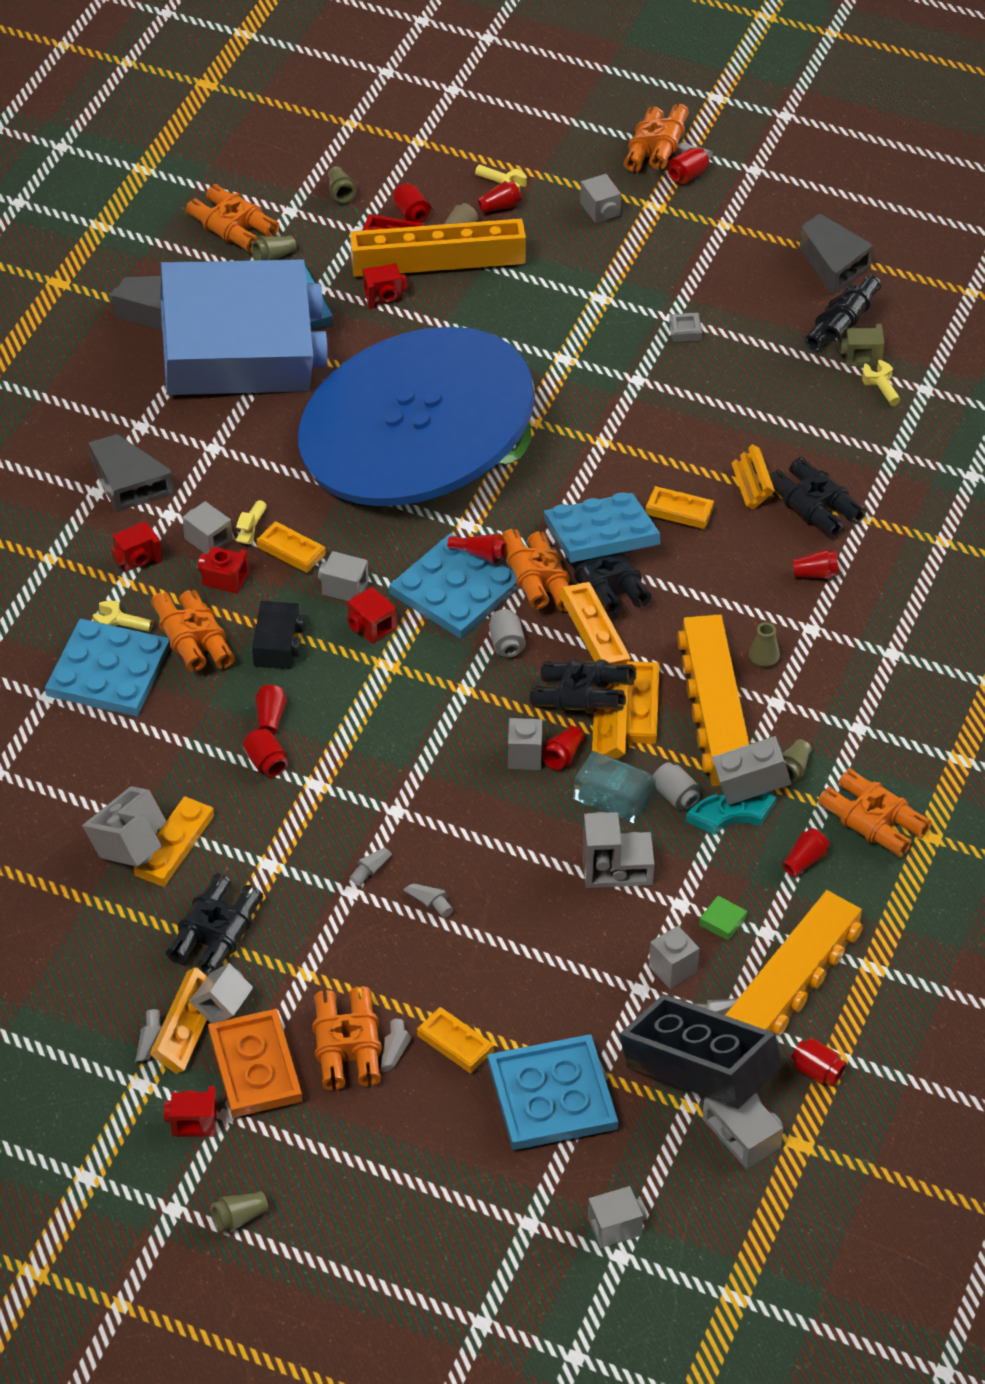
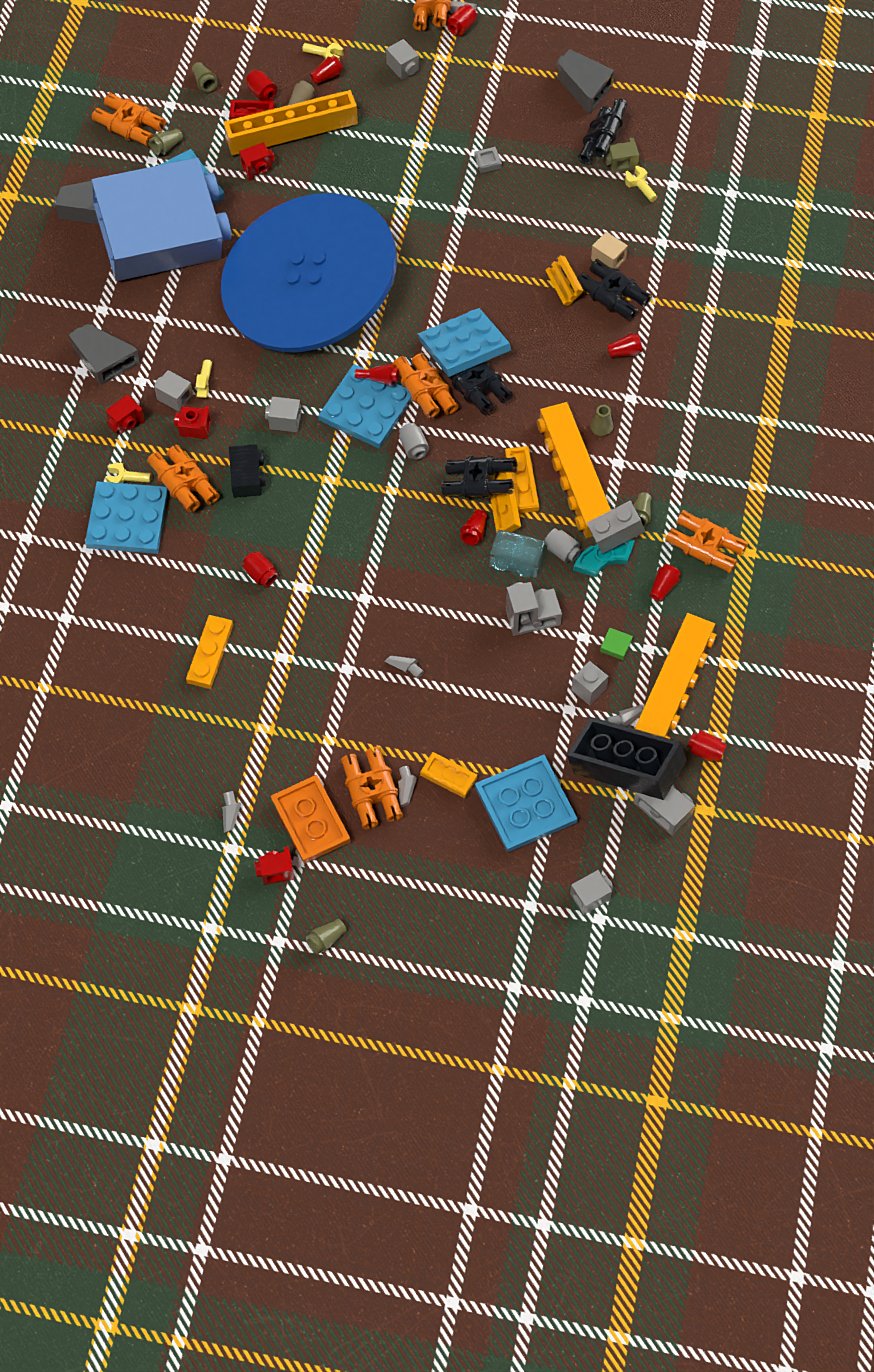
camera: 10 degrees left, 15 degrees up
(127, 828) = (174, 652): light grey brick -> none
(181, 1026) = (253, 795): light orange plate -> none
(214, 924) = (265, 720): black pin -> none
(221, 994) = (275, 771): light grey brick -> none
(270, 706) = (254, 531): red cone -> none
(291, 547) = (238, 395): light orange plate -> none
(370, 865) = (356, 646): light grey bar -> none
(372, 615) = (311, 442): red brick -> none
(525, 744) = (447, 530): light grey brick -> none
(593, 624) = (476, 425): light orange plate -> none
(679, 507) = (516, 314): light orange plate -> none
(821, 450) = (609, 250): none -> tan panel

